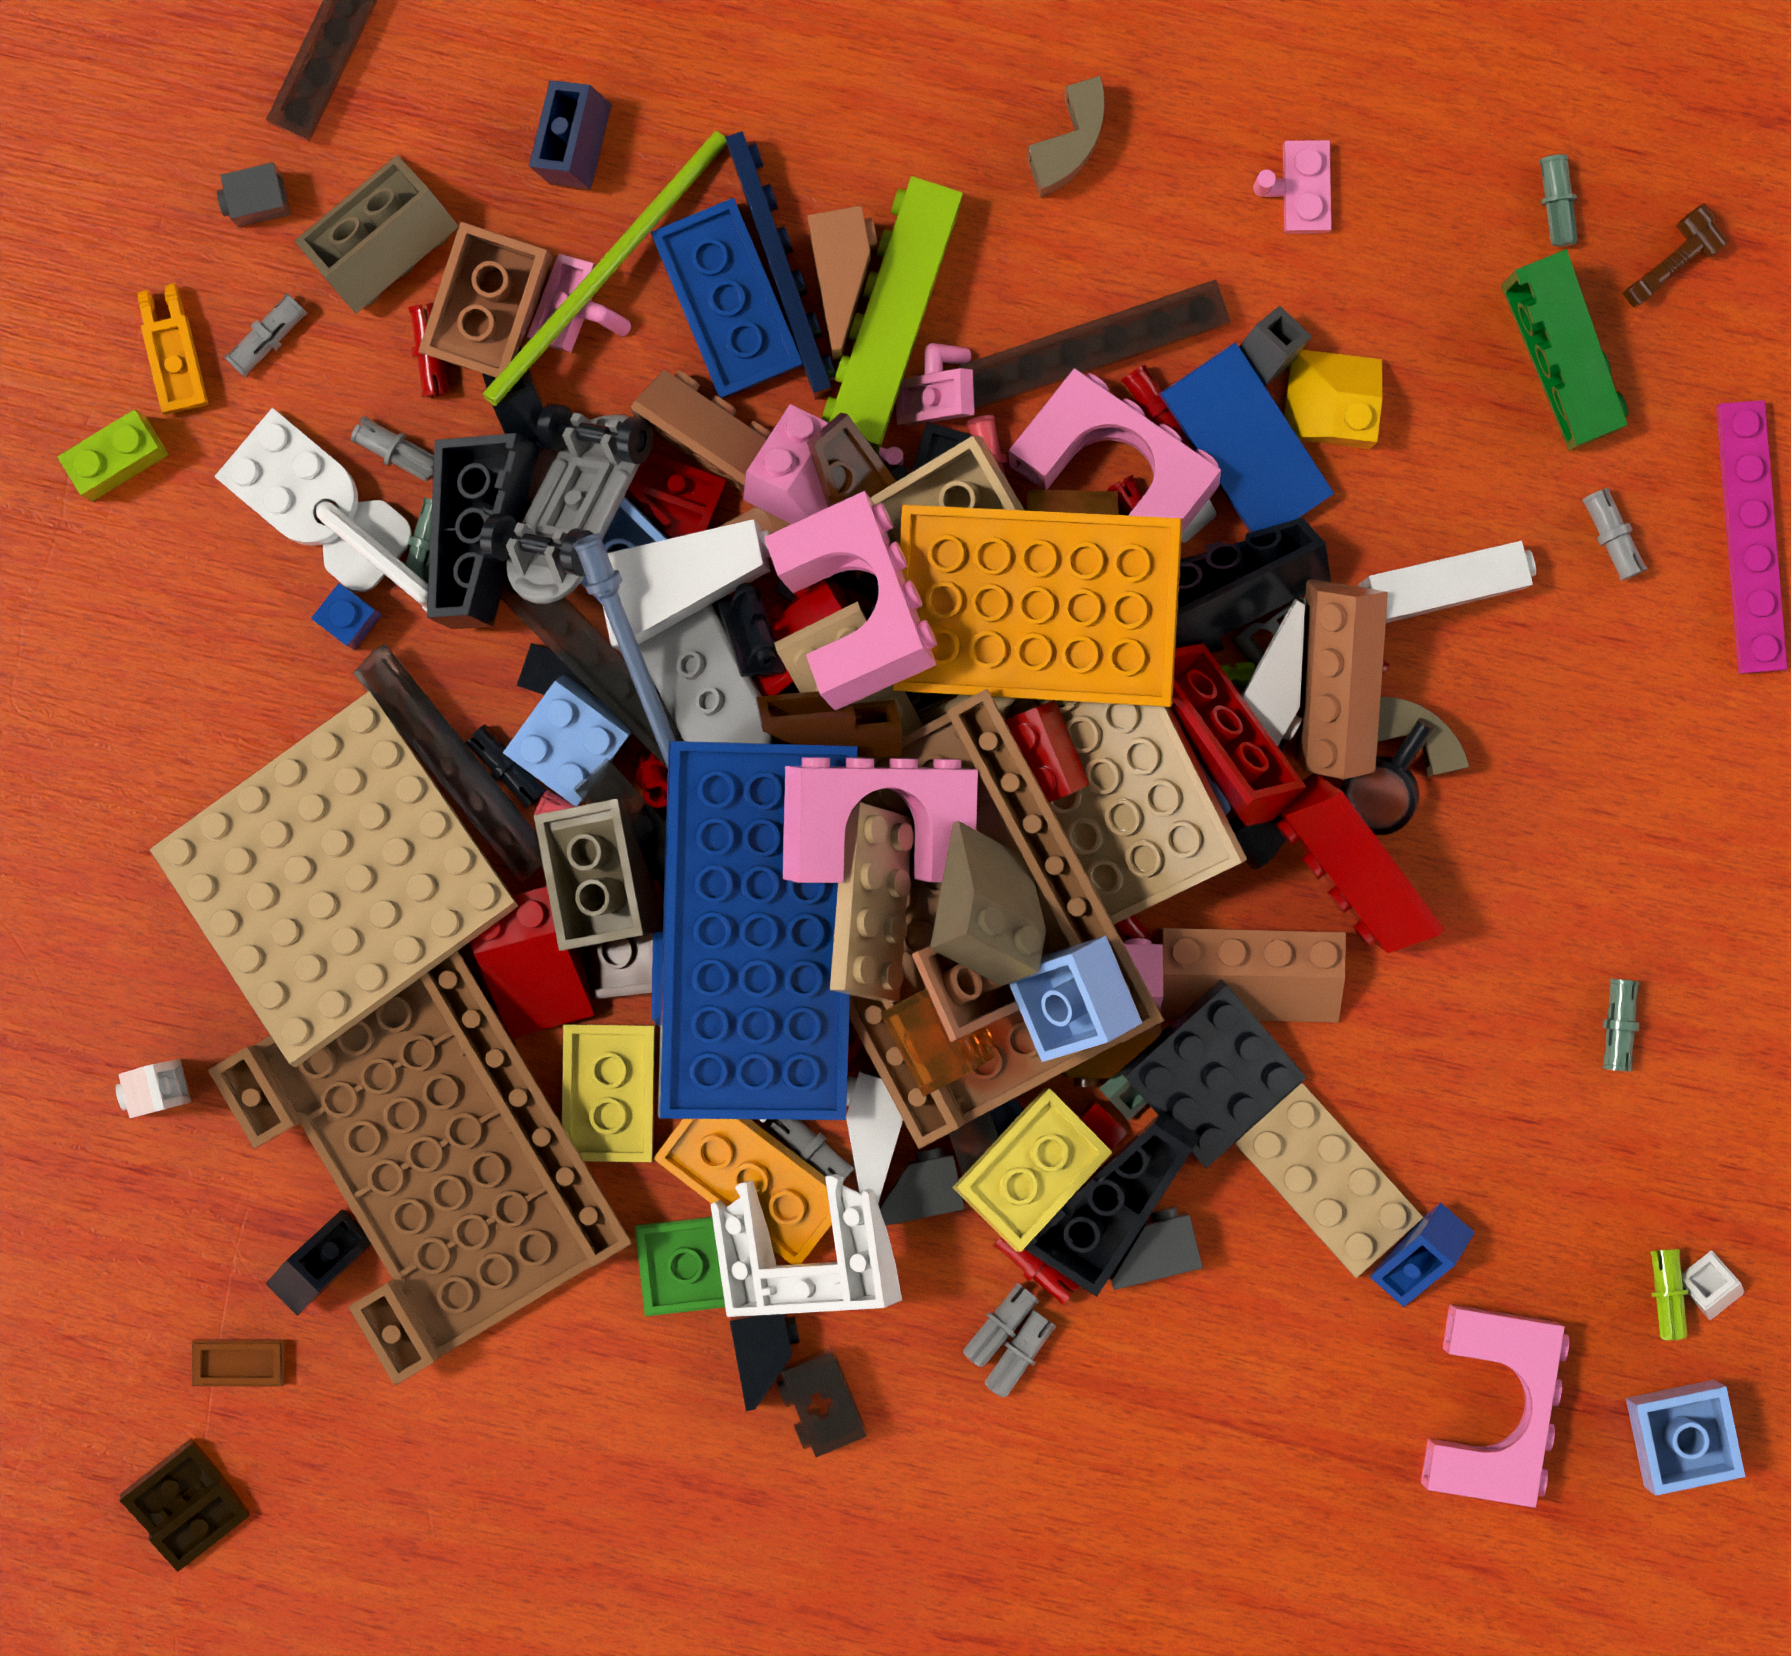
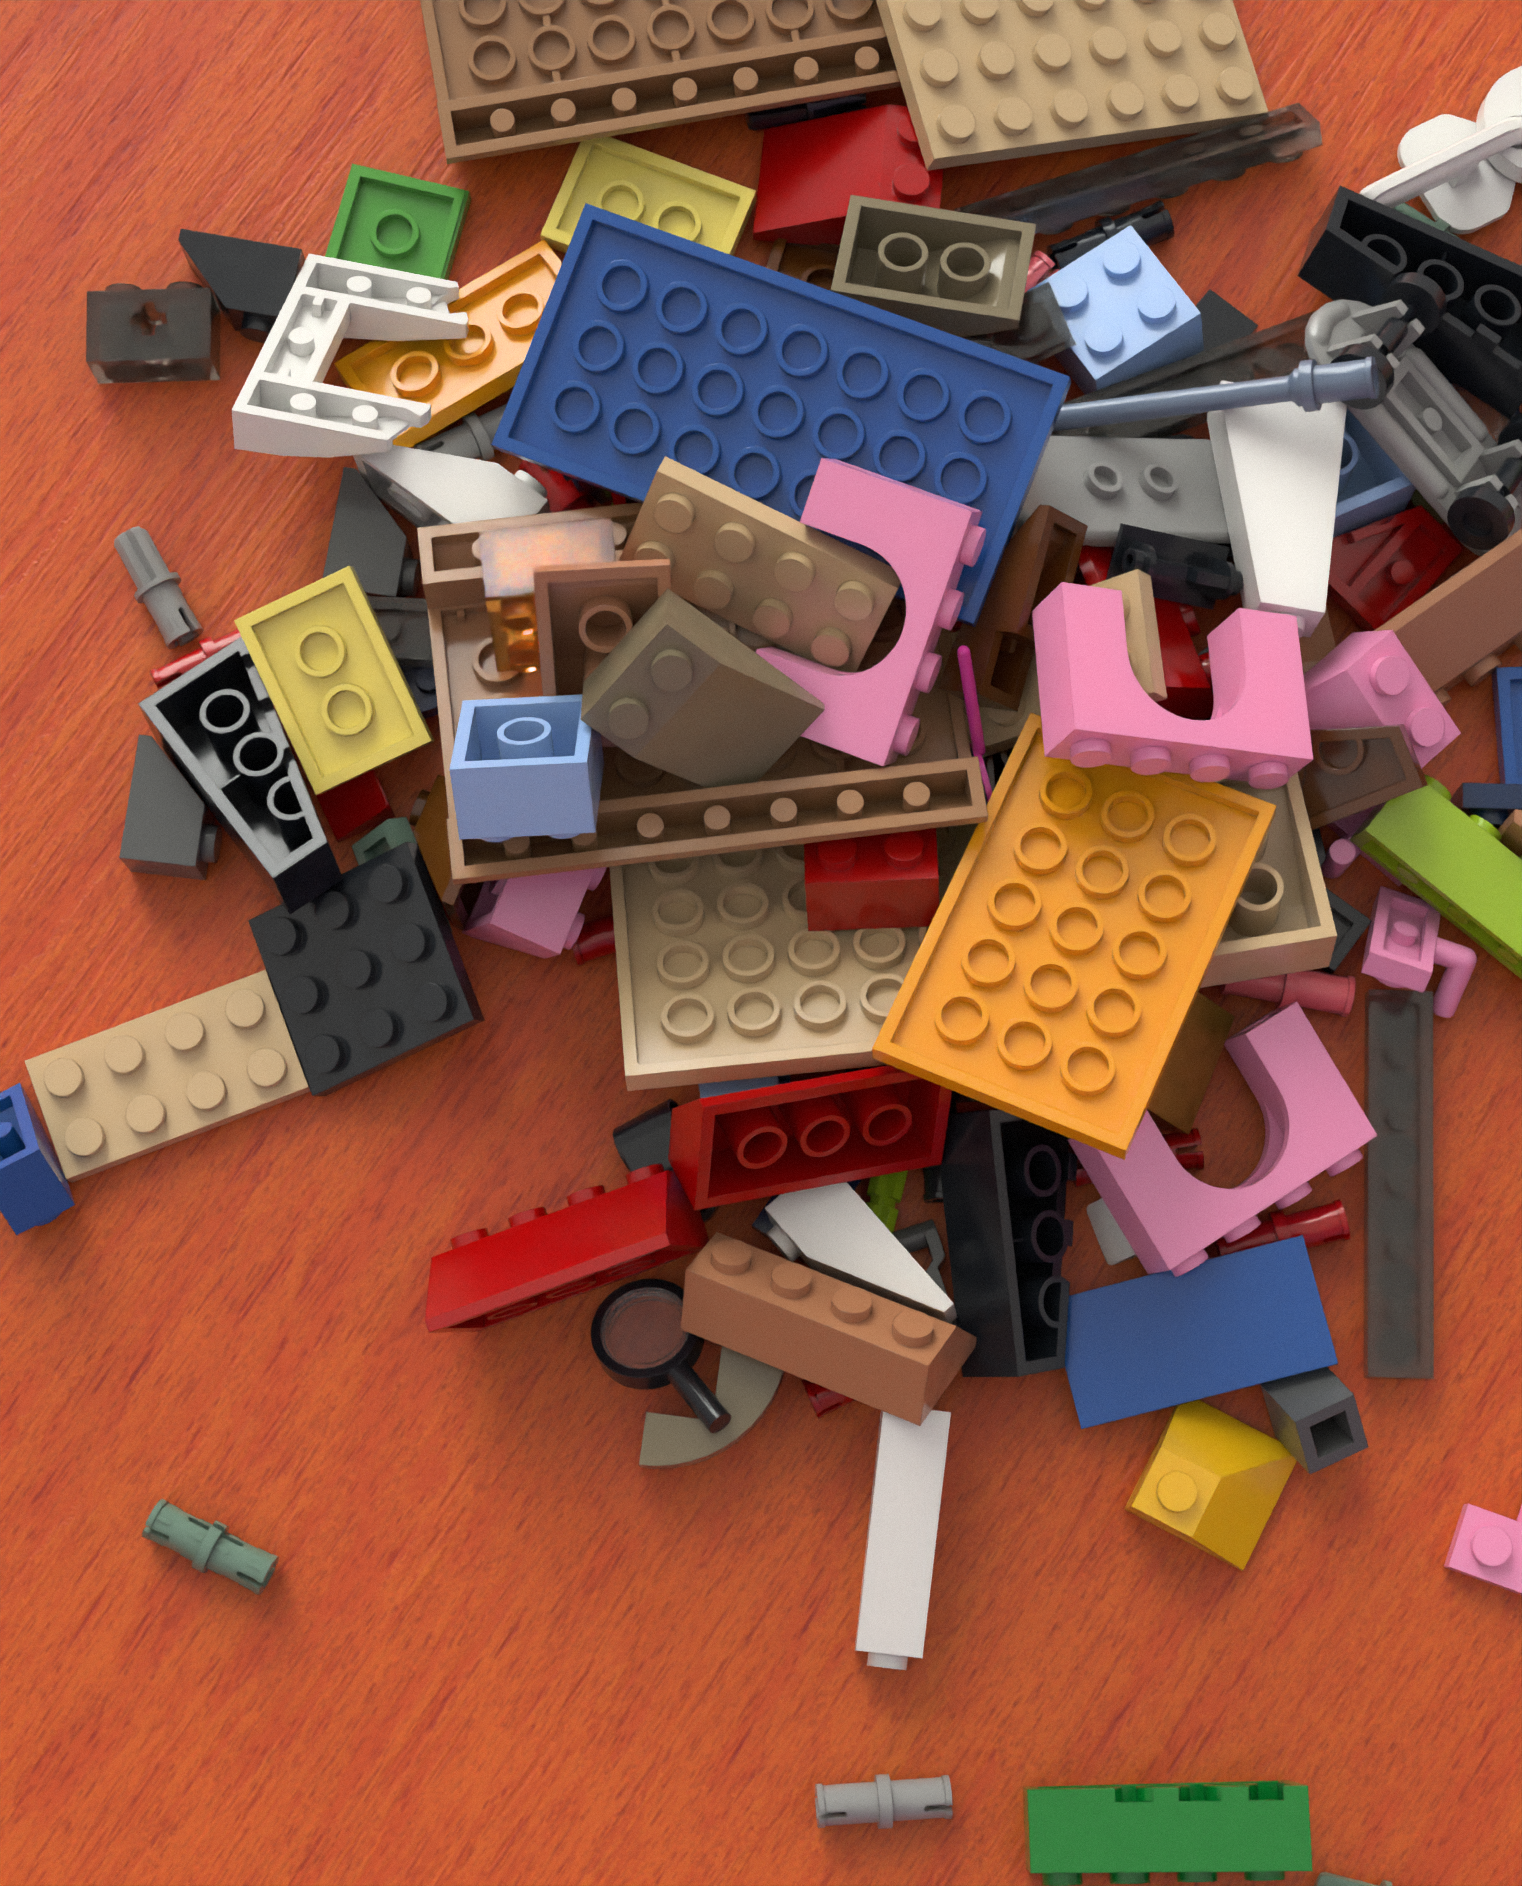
camera: 110 degrees right, 10 degrees down
(346, 616) = (1373, 113): blue brick -> none
(921, 721) = (977, 743): none -> dark pink piece
(1019, 1354) = (111, 598): light grey axle -> none
(1271, 972) = (479, 1087): nougat slope -> none

